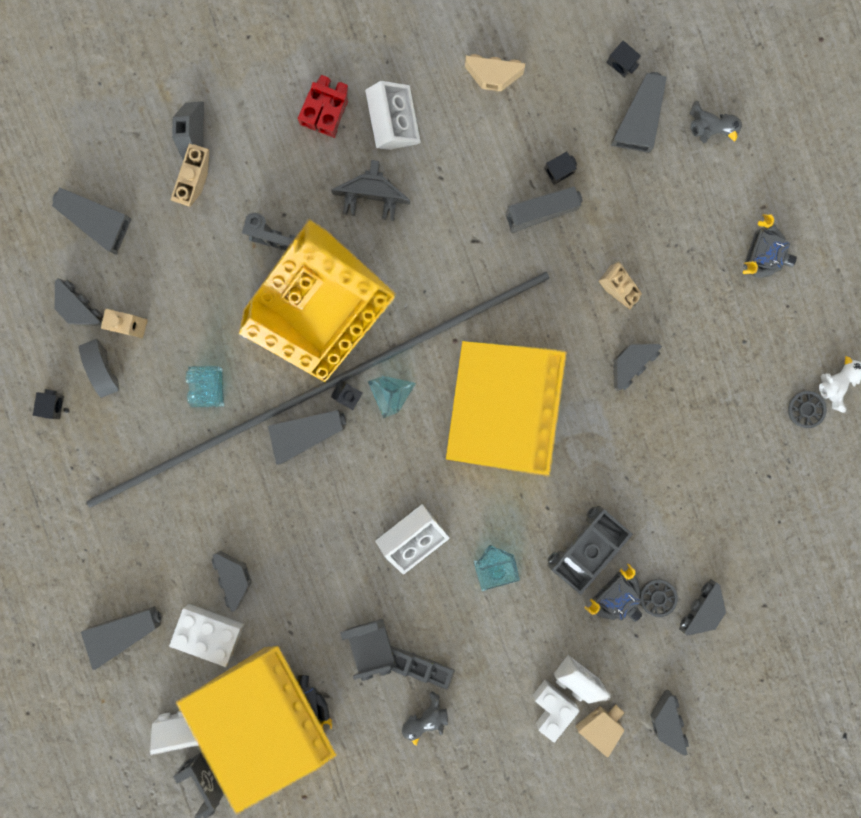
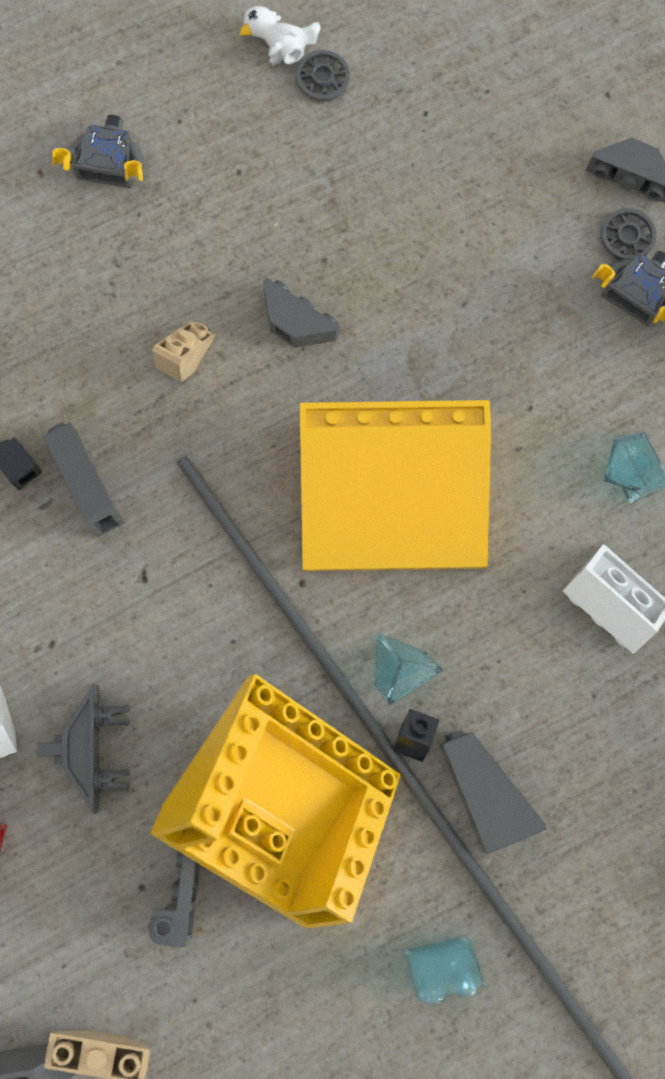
camera: 100 degrees left, 10 degrees down
(590, 550) = (582, 335): dark grey piece -> none

